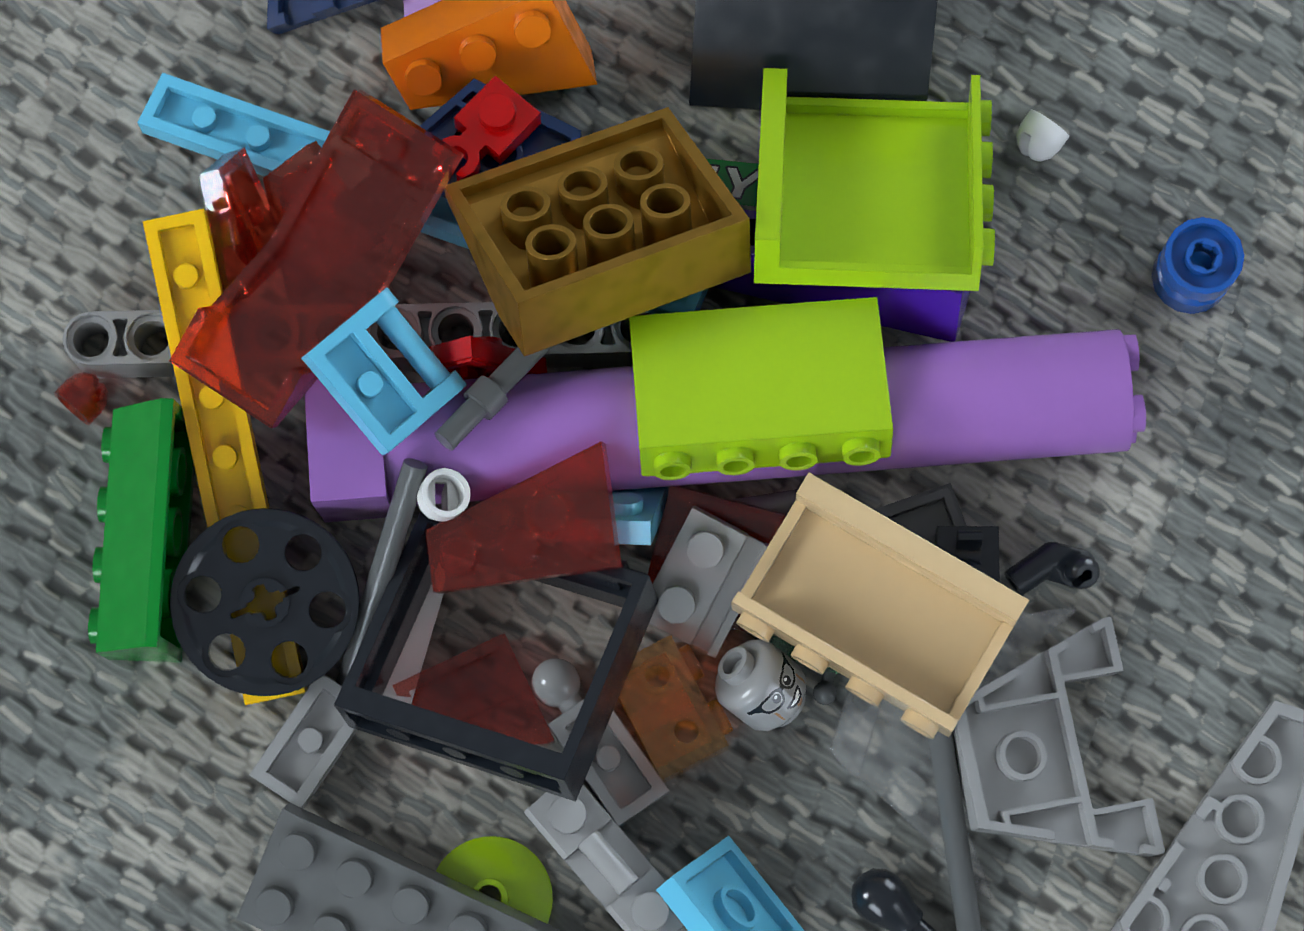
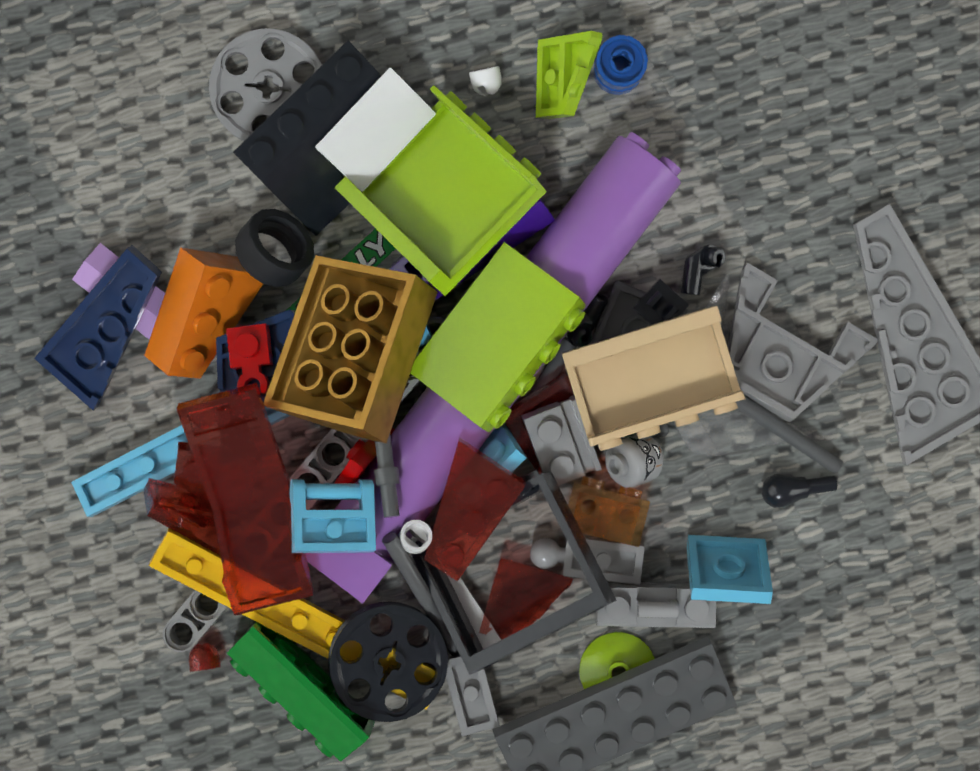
camera: 50 degrees left, 10 degrees up
(604, 61) = (257, 259): none -> black tyre
(870, 56) = (375, 129): none -> white sticker
(878, 488) = (583, 333): none -> black arm
(1129, 210) = (563, 72): none -> lime wing

